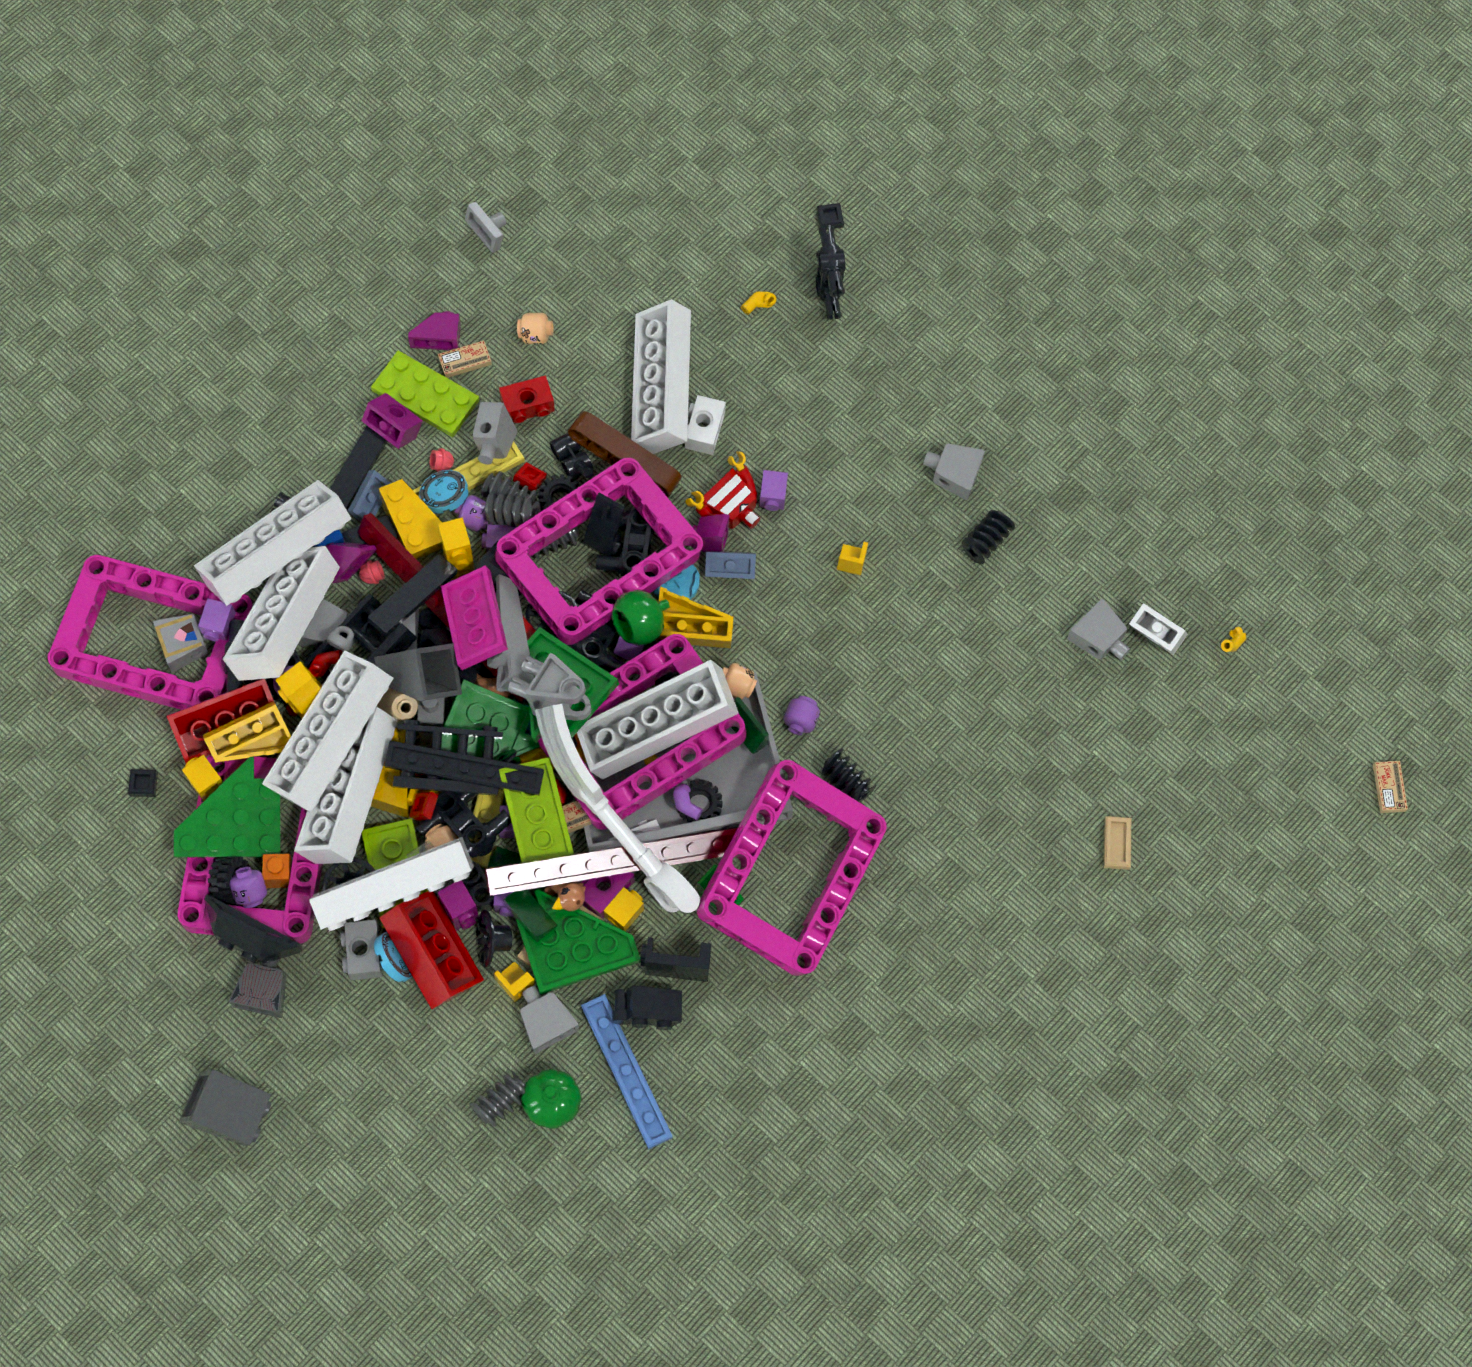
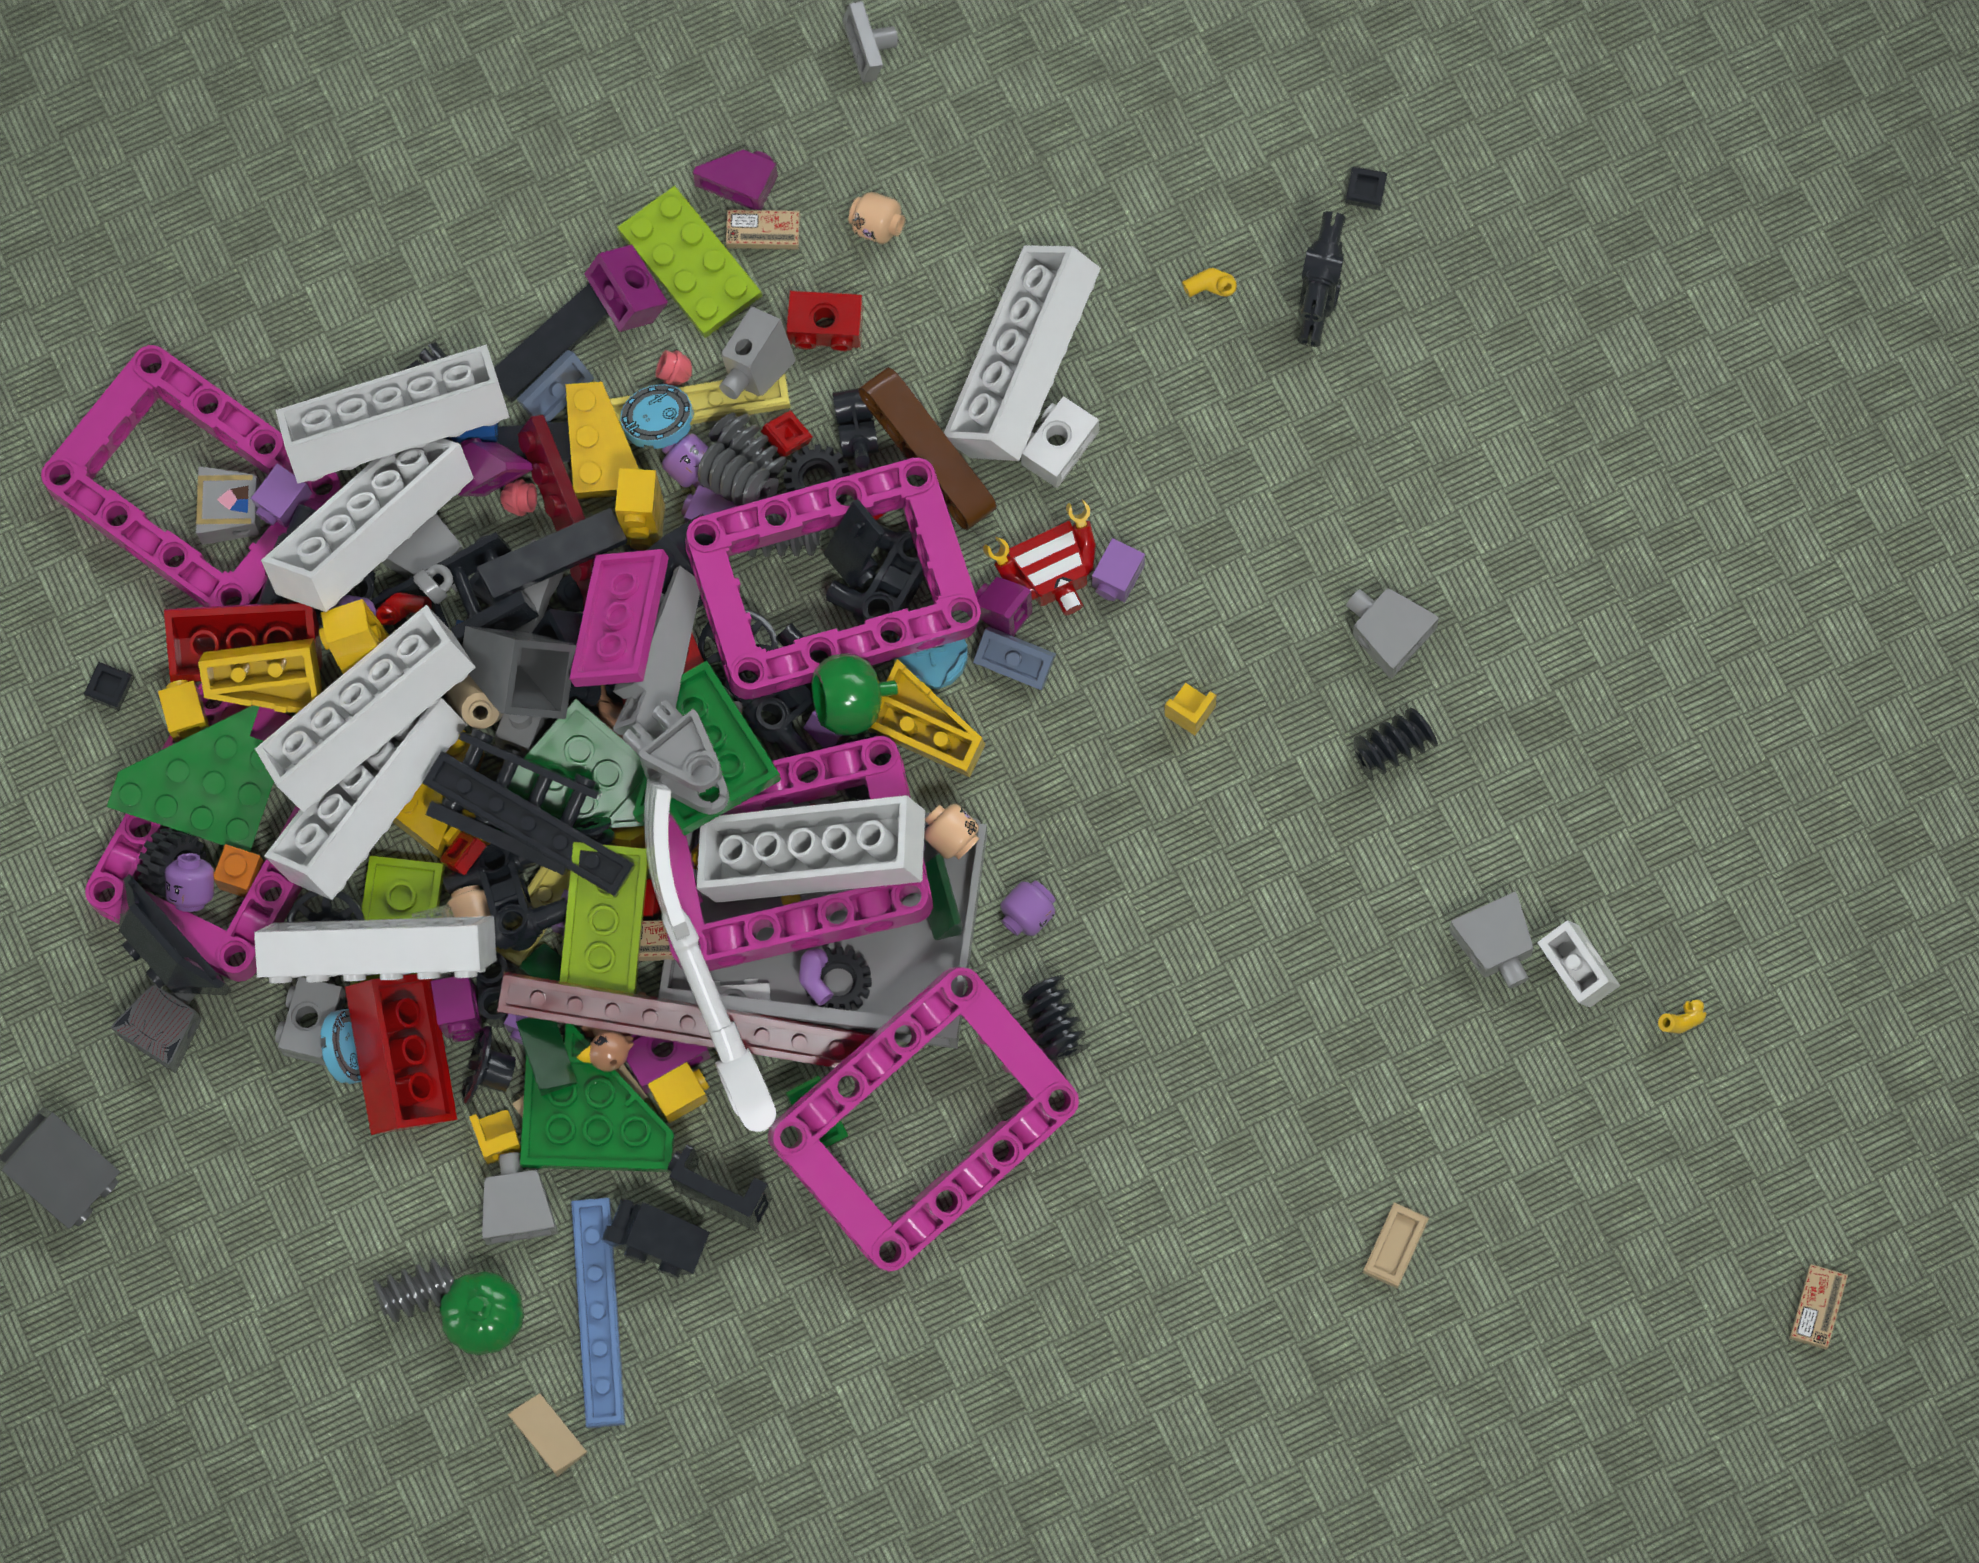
camera: 30 degrees right, 5 degrees up
(624, 1163) = (547, 1434): none -> tan slope

